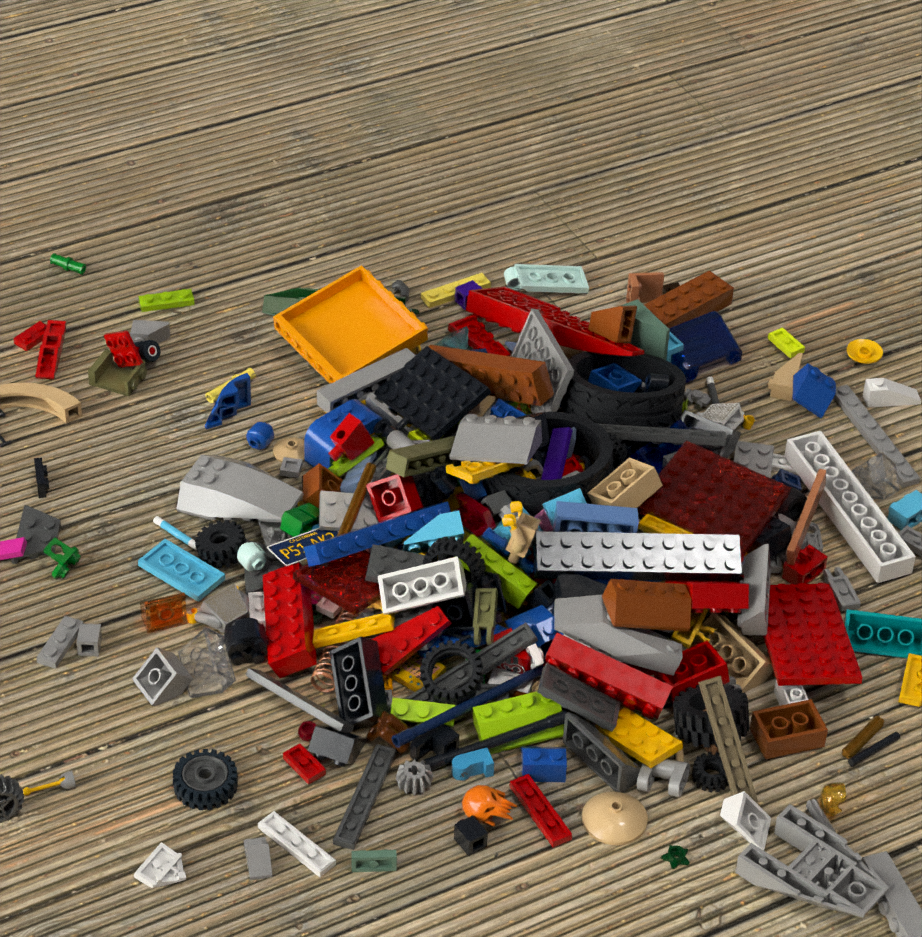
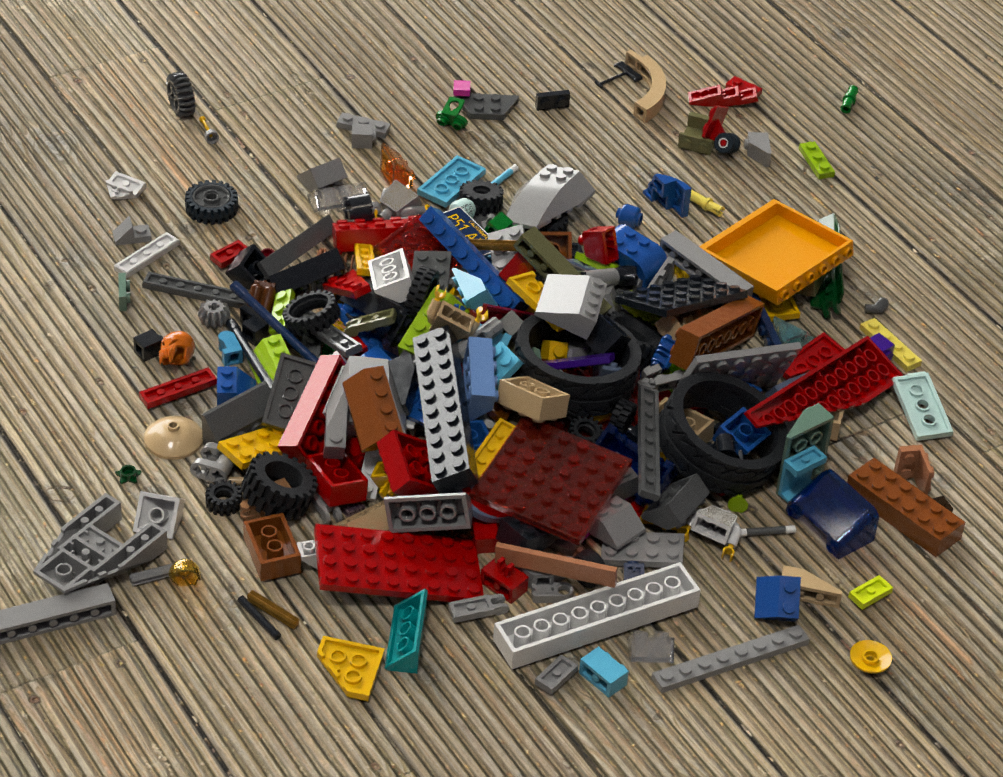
camera: 85 degrees right, 0 degrees up
(614, 323) = (794, 403): dark orange slope -> none
(698, 397) = (758, 516): light grey piece -> none
(727, 737) = (229, 480): dark tan plate -> none
(884, 392) = (801, 673): white slope -> none

